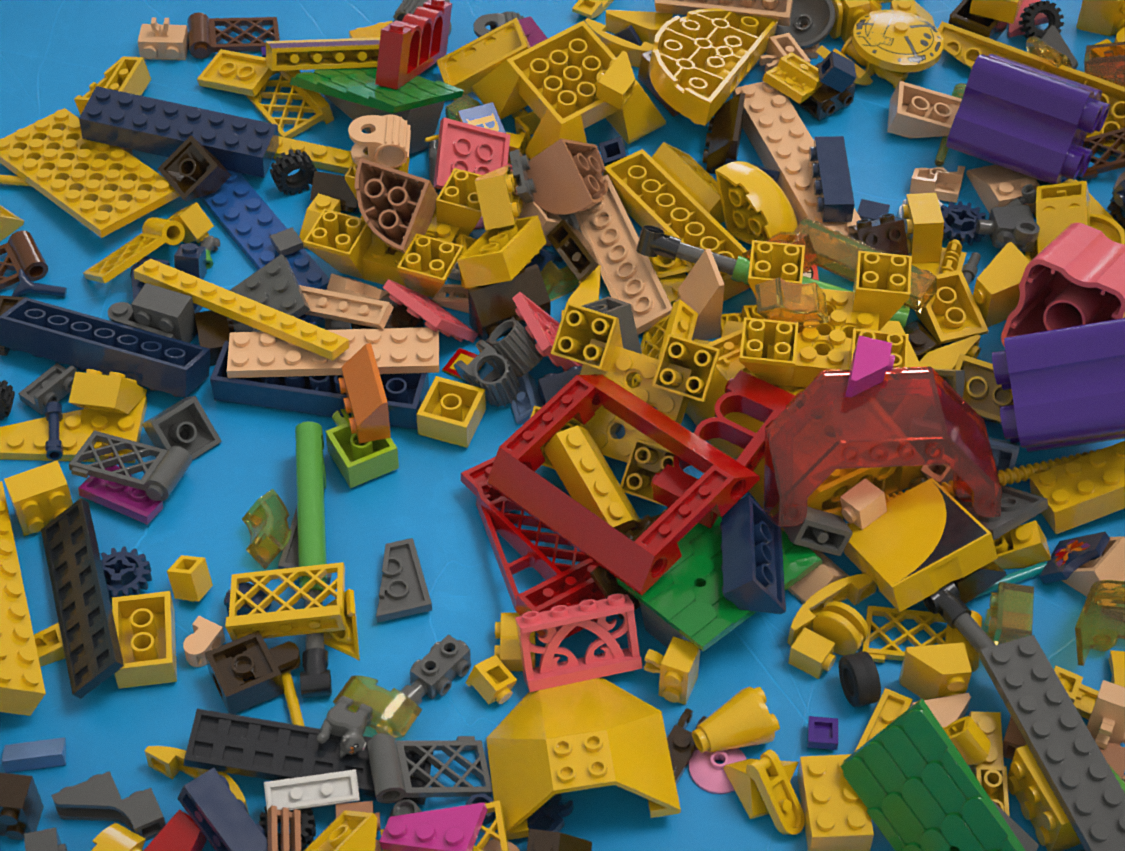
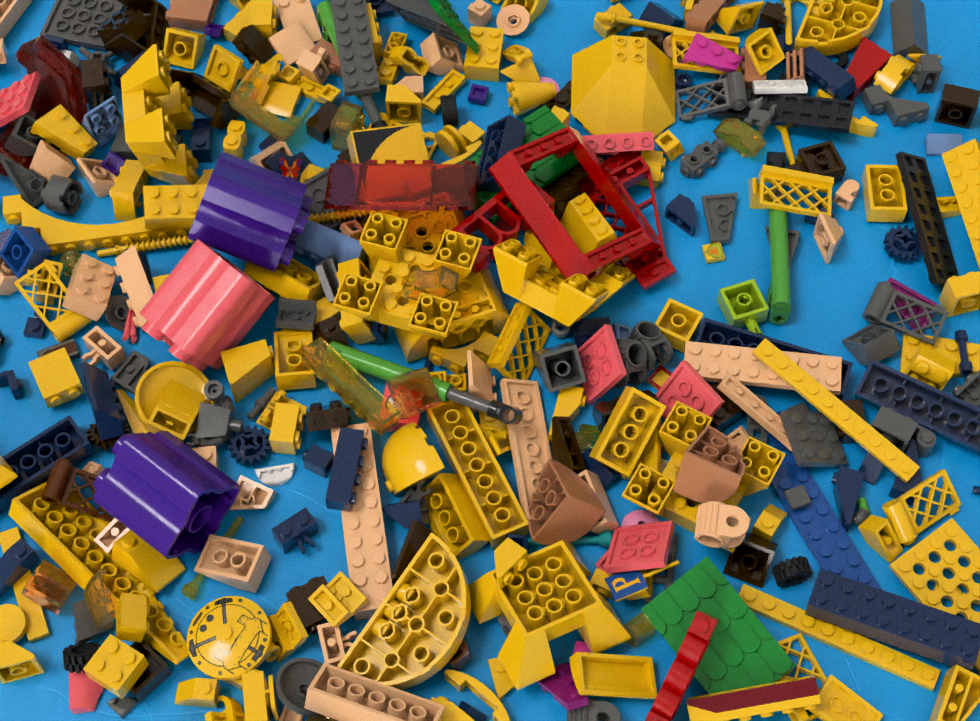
camera: 170 degrees left, 10 degrees up
(189, 578) = (858, 228): yellow brick -> none
(191, 260) = (874, 489): dark blue brick -> none
(194, 170) = (877, 569): dark brown slope -> none
(223, 262) = (846, 492): none -> dark blue slope
(232, 555) = (827, 236): none -> light nougat slope
(267, 528) = (806, 254): clear yellow brick -> none
(365, 396) = (740, 313): orange slope -> none
(408, 529) = (713, 252): none -> tile
(459, 574) = (682, 213): none -> dark blue slope
(498, 198) = (626, 467): yellow slope -> none
(526, 186) = (604, 487): dark grey wing -> none
(837, 72) = (302, 589): dark blue brick -> none
(869, 150) = (295, 531): none -> dark blue brick
(869, 364) = (401, 197): dark pink slope -> none
(965, 338) = (296, 314): none -> dark grey bracket
(1005, 30) = (132, 617): none -> yellow brick
(1056, 637) = (319, 123): none -> dark brown brick

